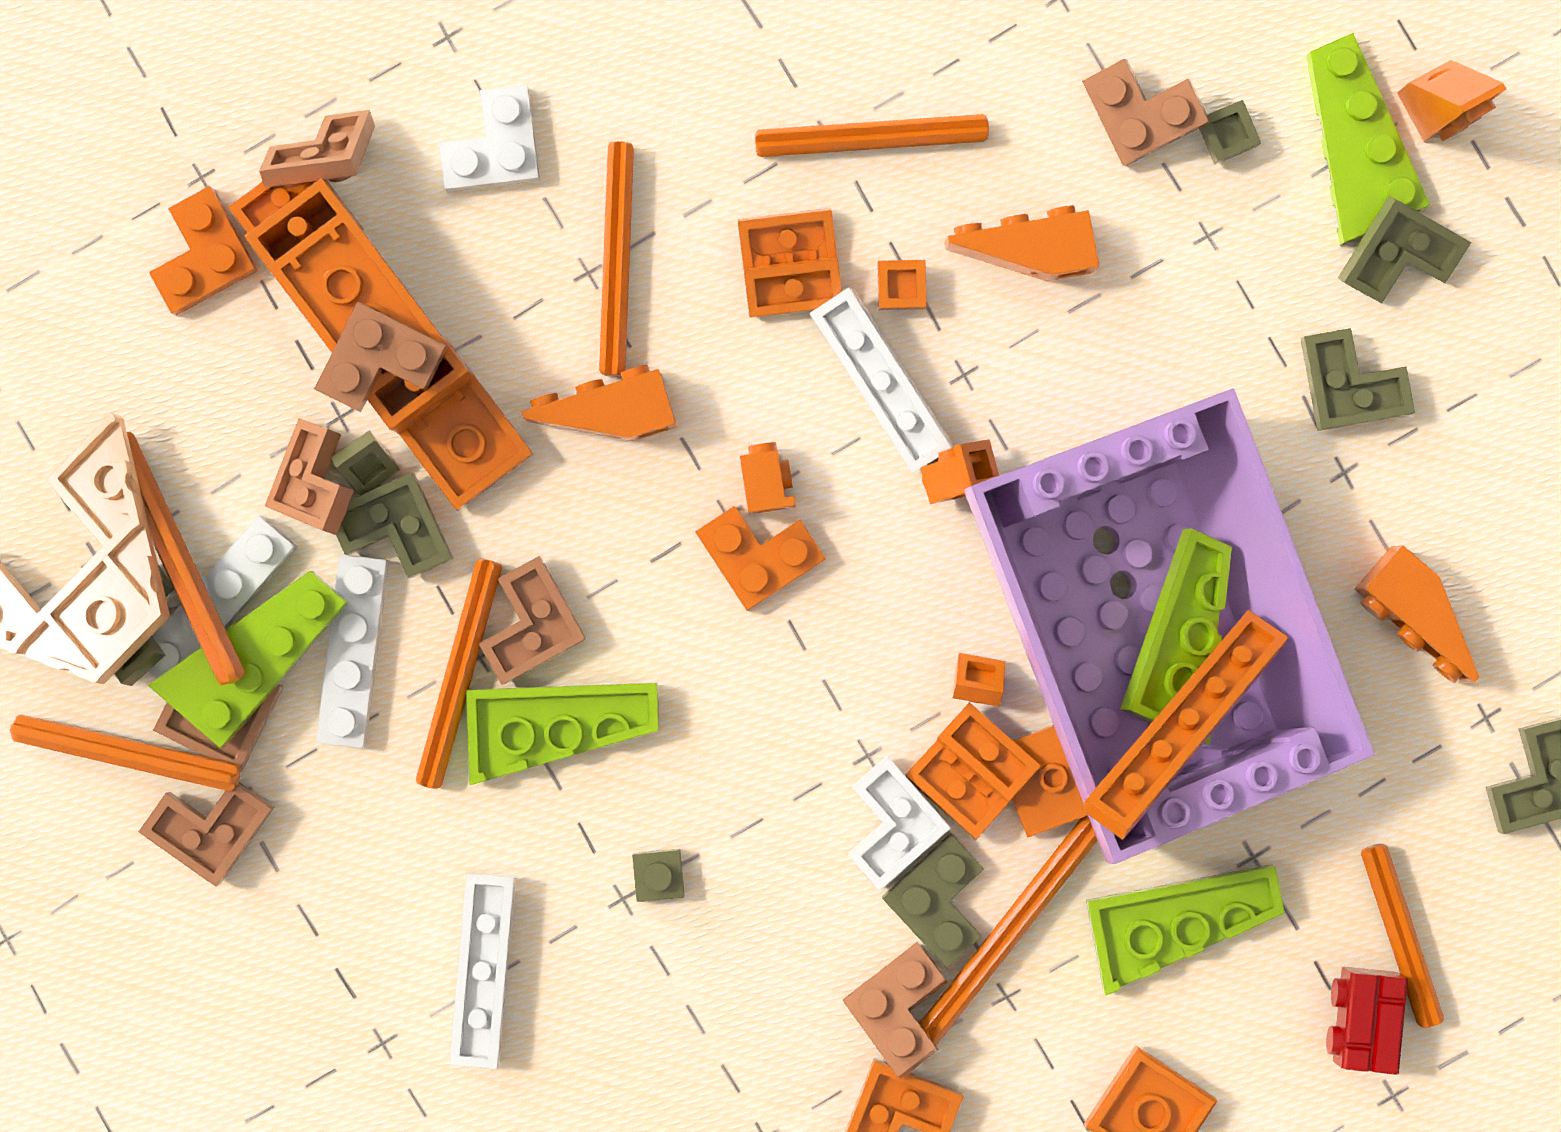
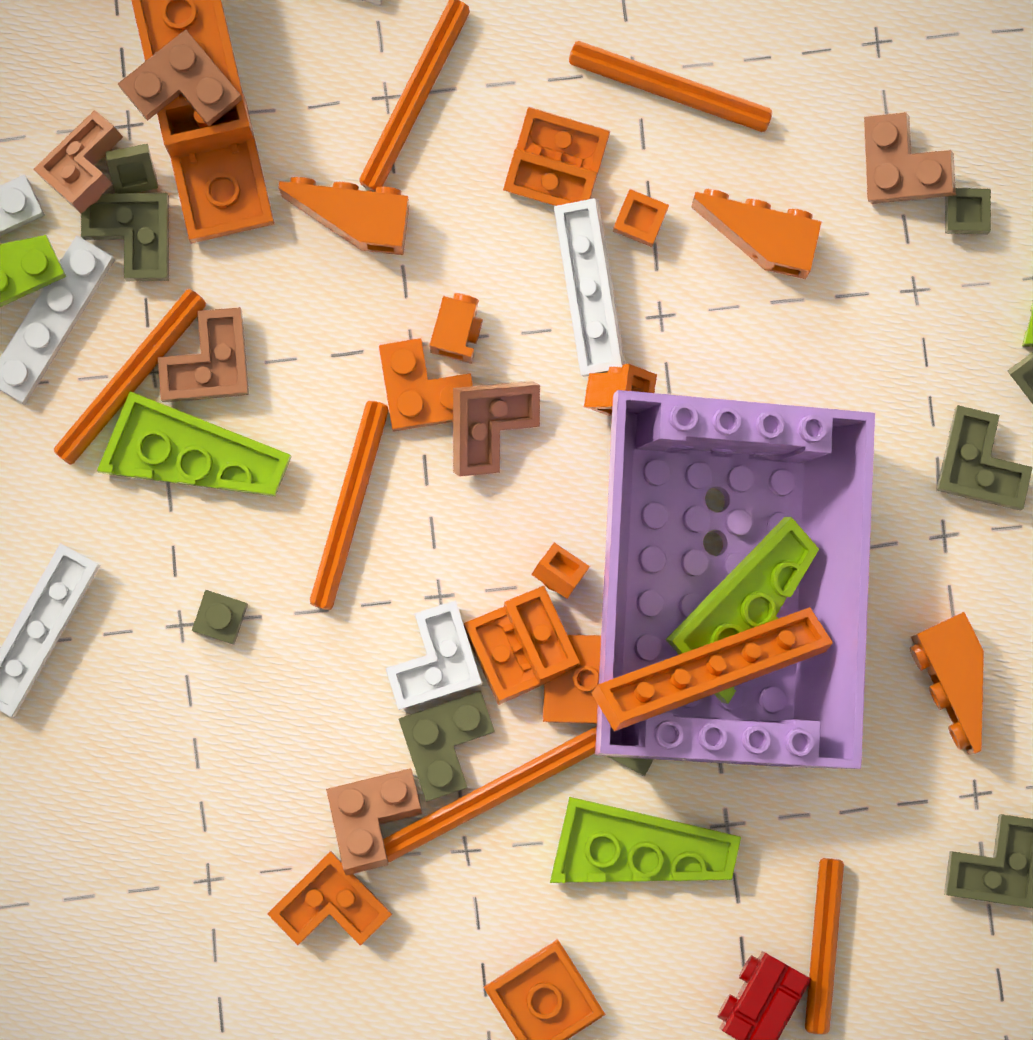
camera: 20 degrees right, 5 degrees down
(737, 706) = (349, 505): none -> orange axle
(832, 557) = (480, 417): none -> nougat plate

